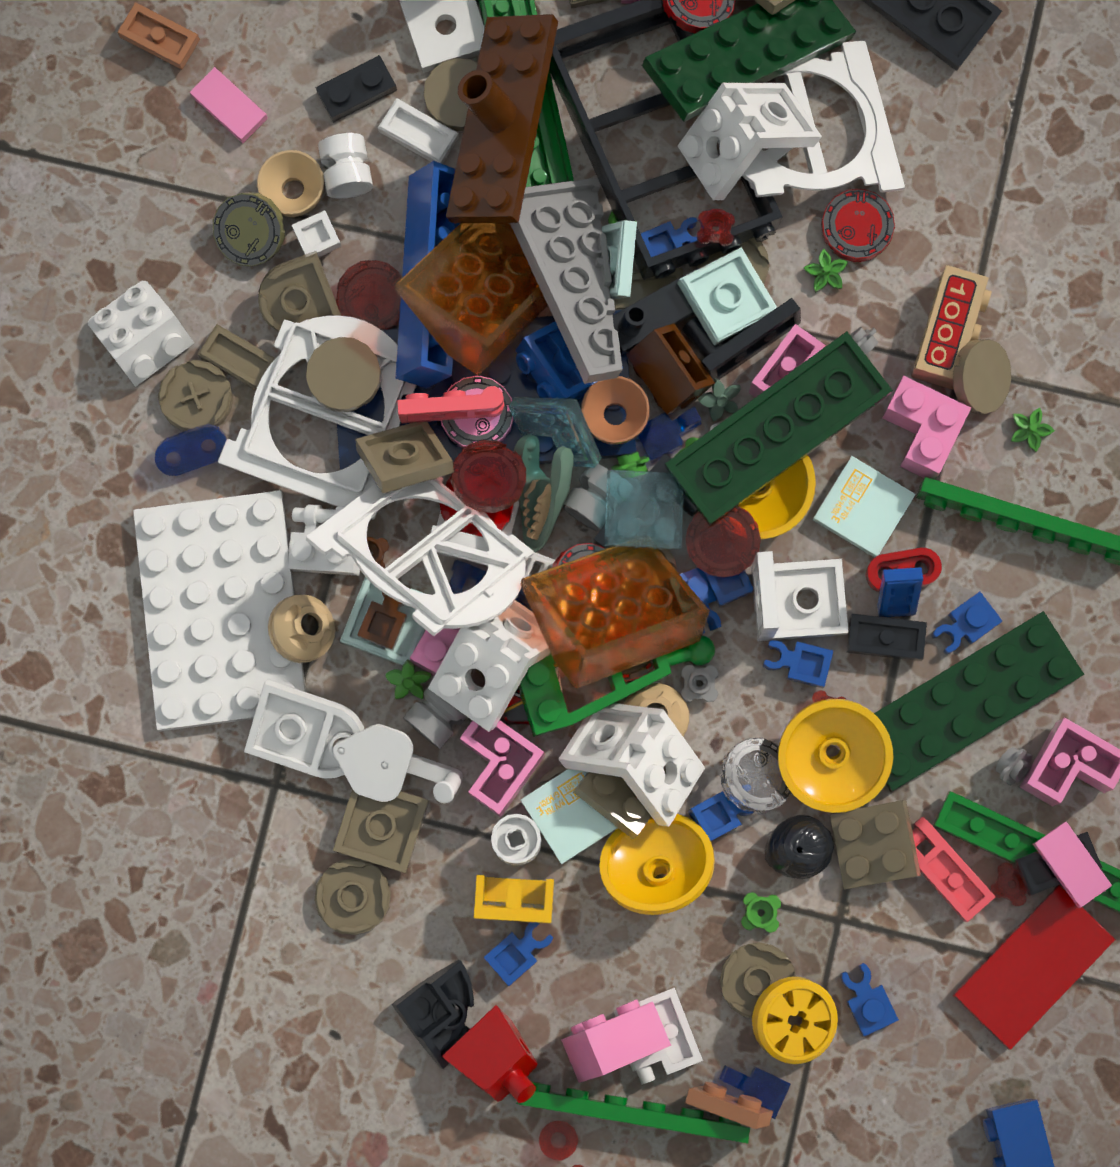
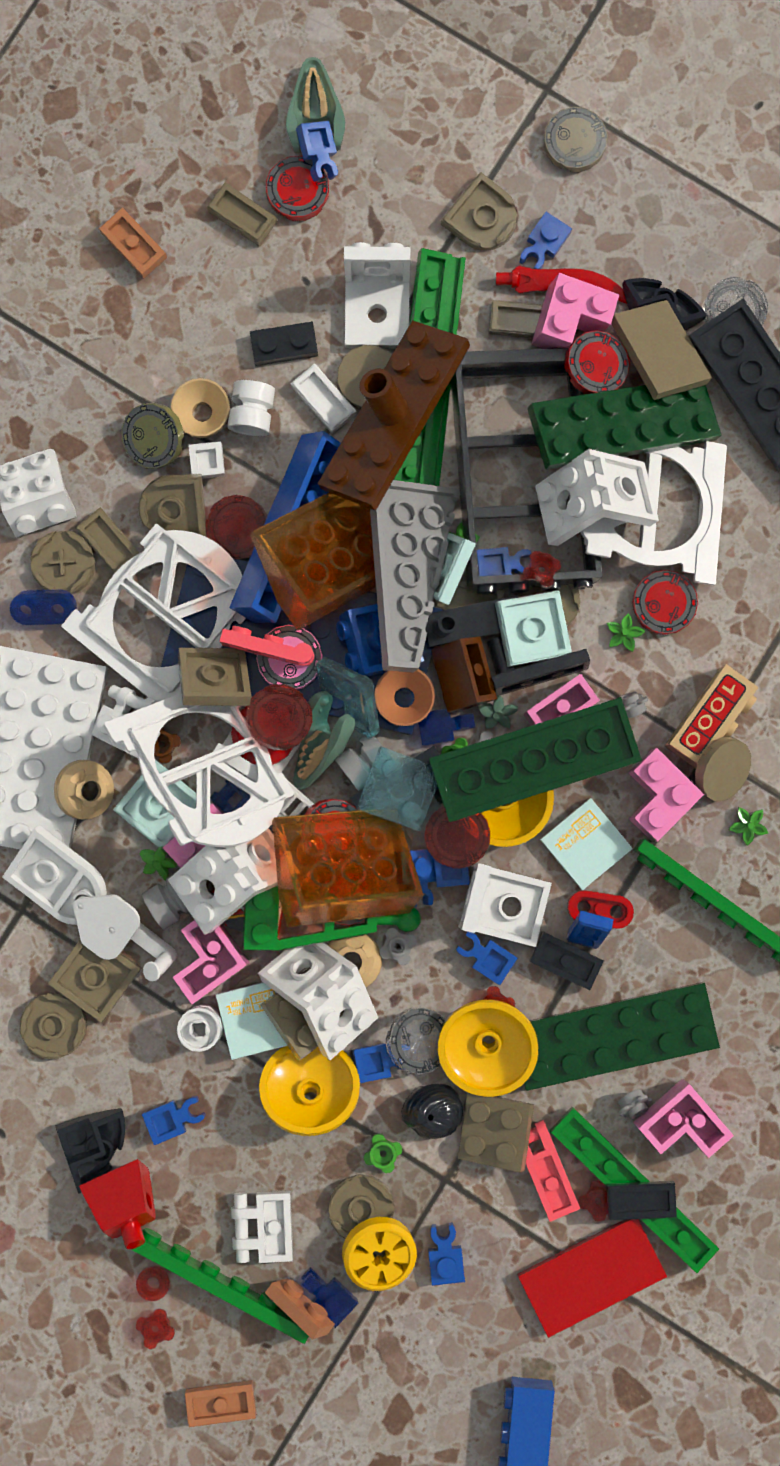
camera: 15 degrees right, 5 degrees up
(228, 105) = (172, 322): bright pink tile -> none
(343, 374) = (188, 588): dark tan tile -> none
(383, 623) = (150, 812): reddish brown plate -> none
(514, 899) = (181, 1076): yellow window -> none
(608, 1045) = (224, 1227): bright pink brick -> none
(631, 462) = (404, 743): bright green plate -> none
(970, 621) = (641, 969): blue plate -> none
(1072, 864) = (652, 1208): bright pink tile -> none

